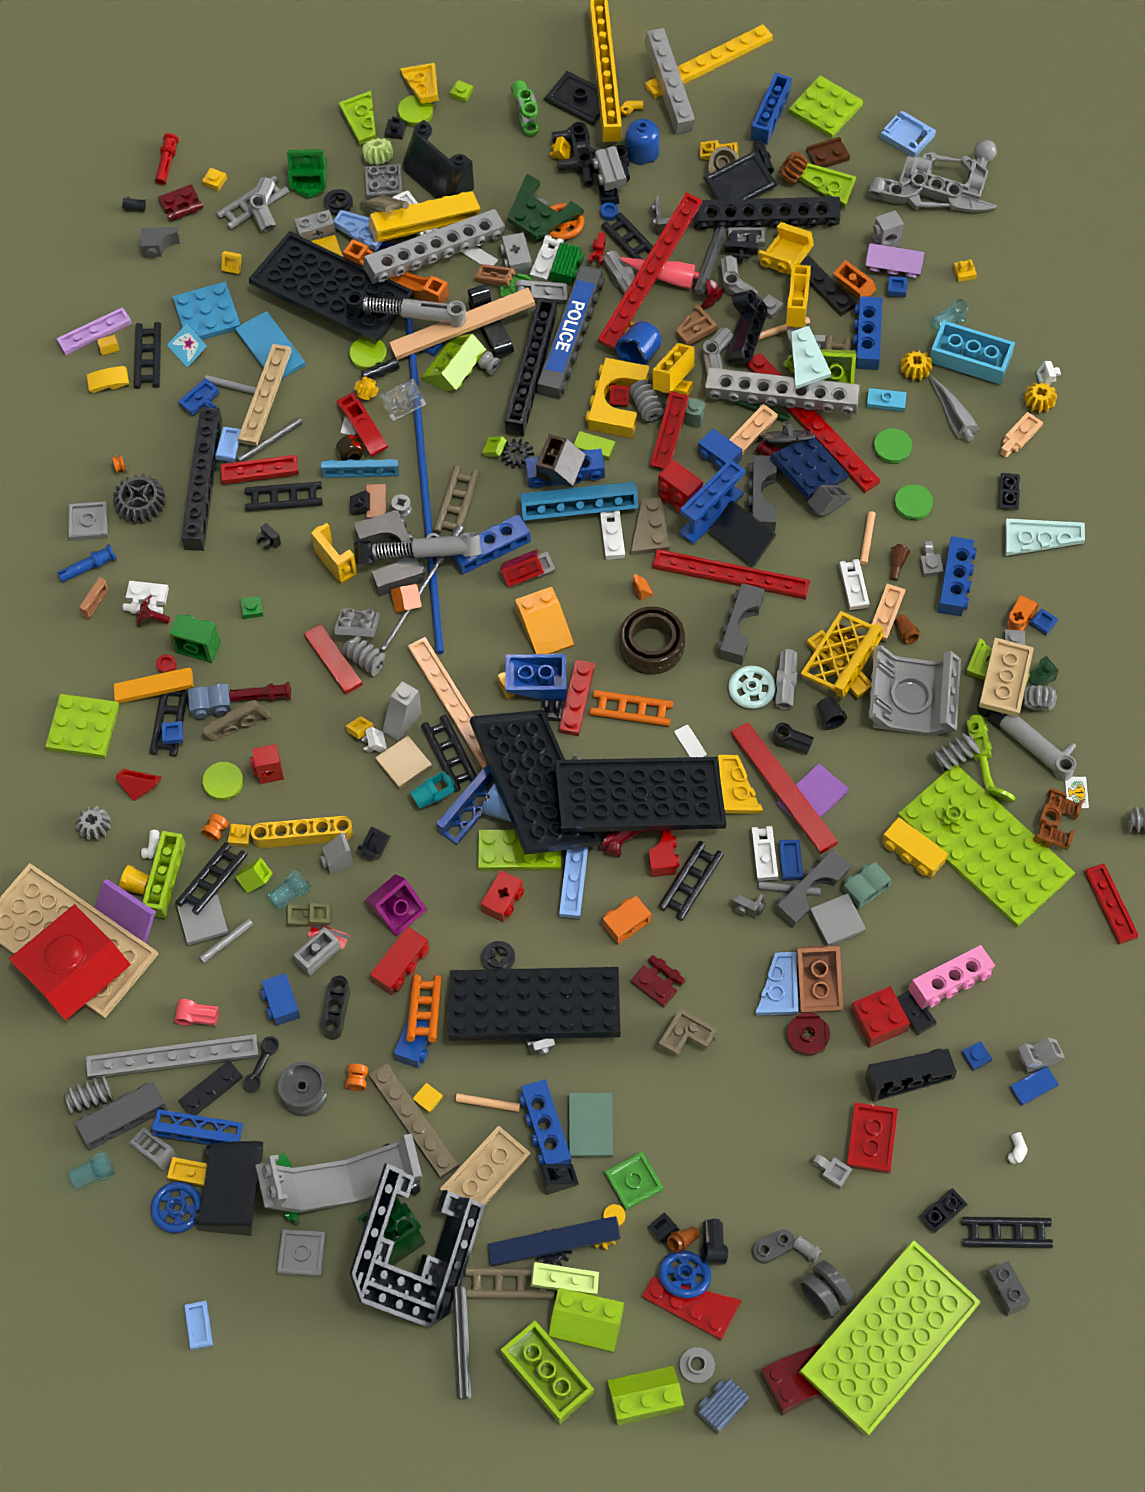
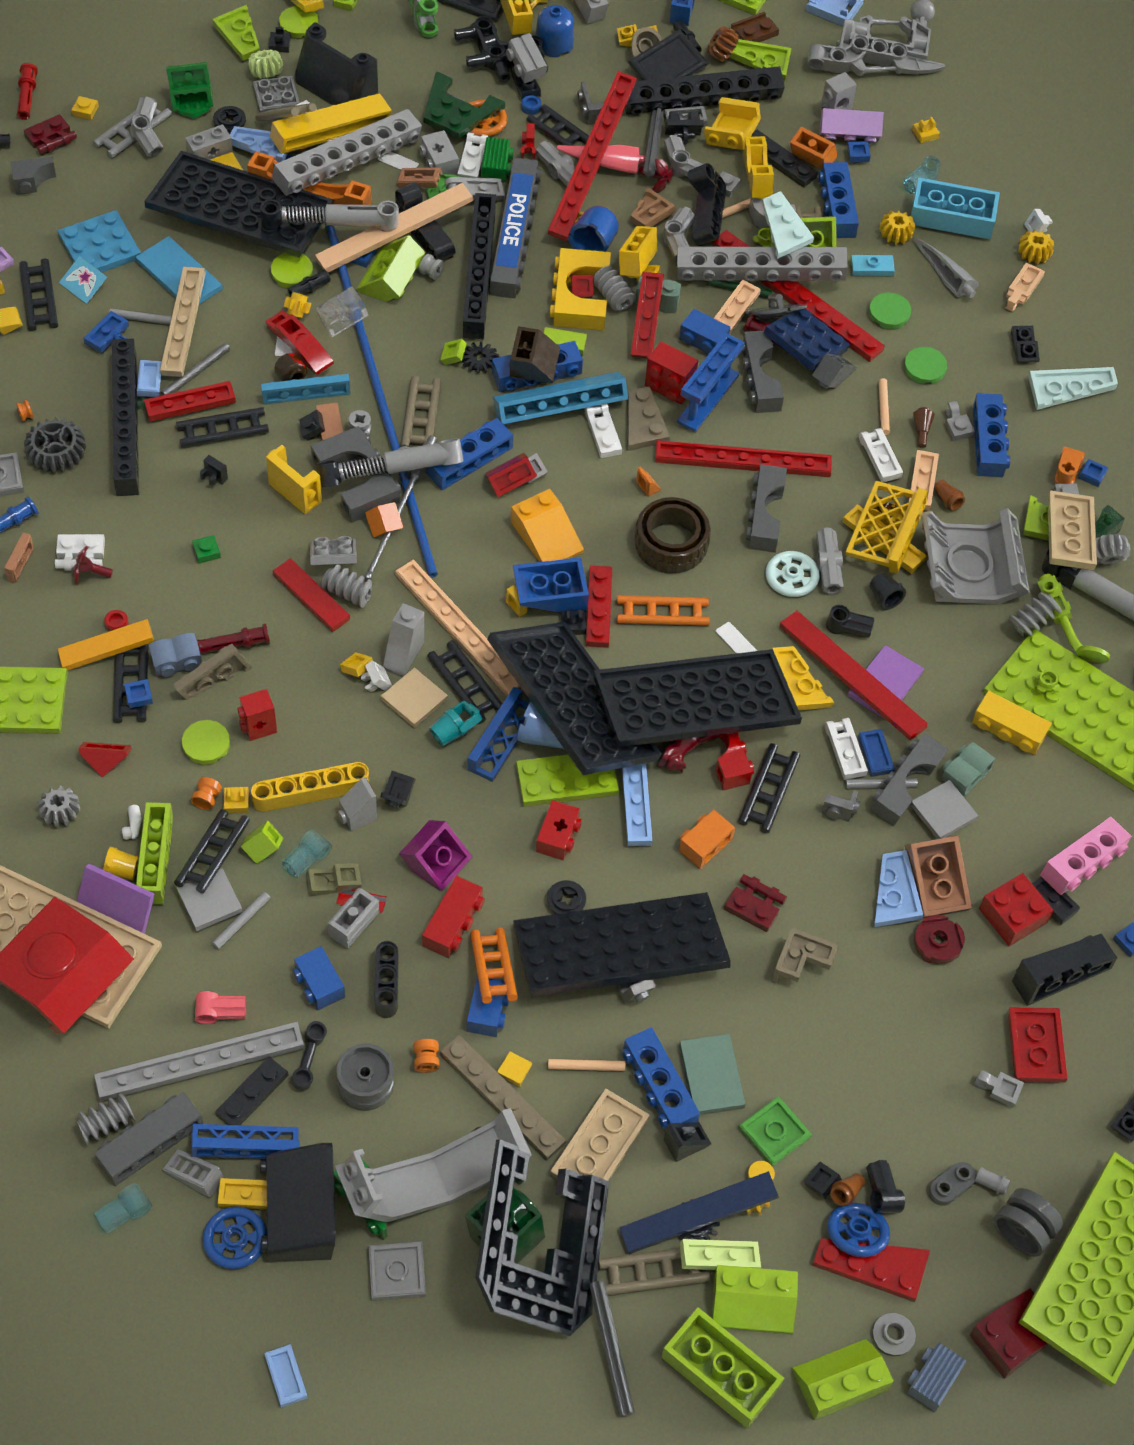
camera: 15 degrees left, 5 degrees down
(195, 638) = (147, 586): green brick -> none
(231, 262) = (119, 189): yellow tile -> none
(561, 149) = (467, 46): yellow tile -> none
(742, 533) = (749, 413): black tile -> none

